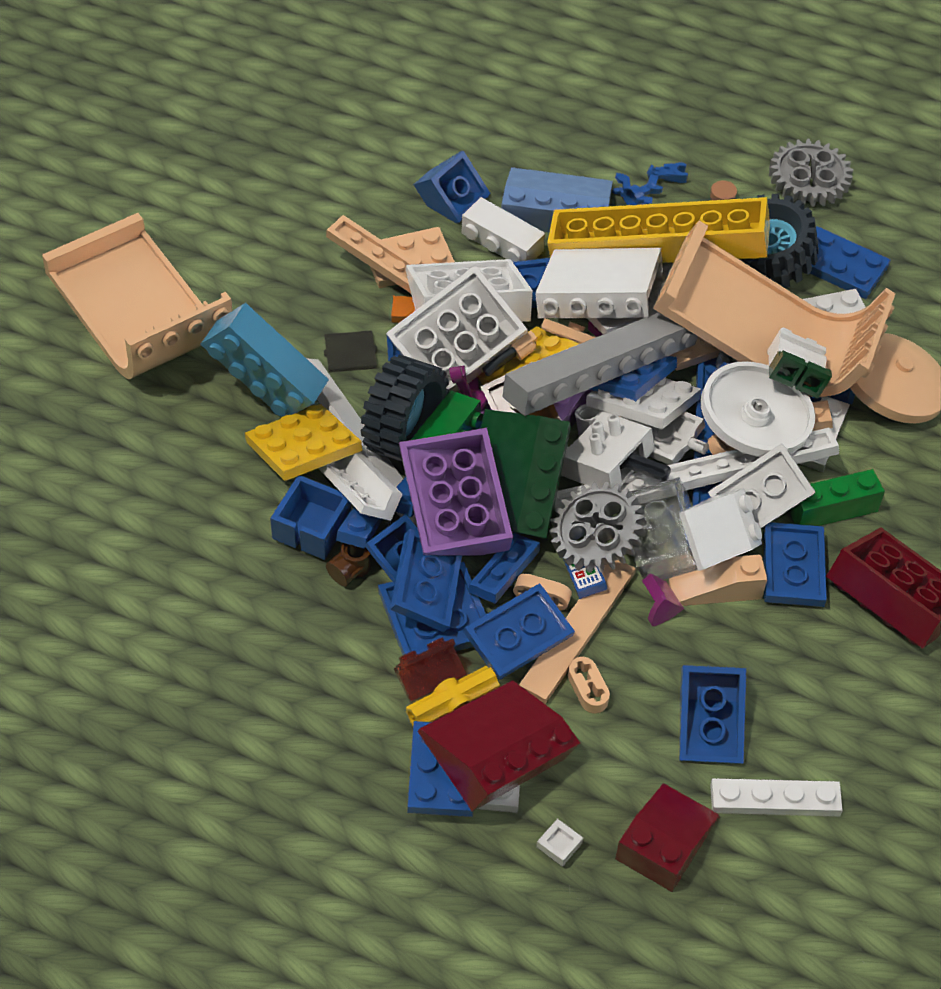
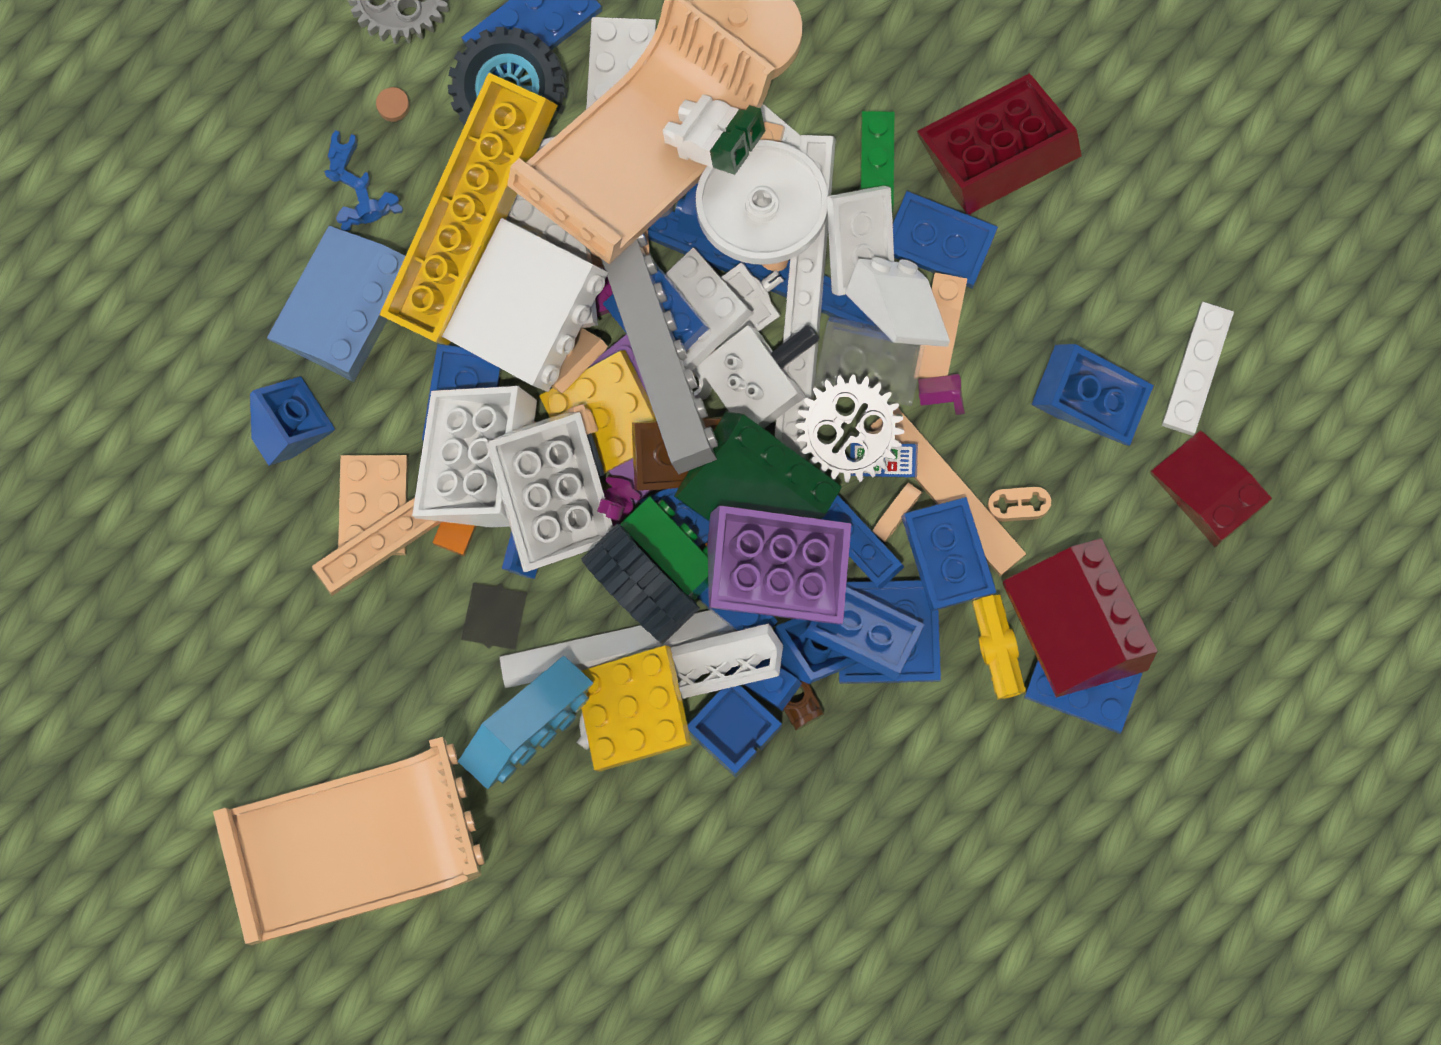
camera: 65 degrees left, 25 degrees up
(425, 671) = (961, 660): clear red bracket -> none
(502, 232) = (379, 385): white brick -> none
(559, 842) = (1190, 595): white plate -> none

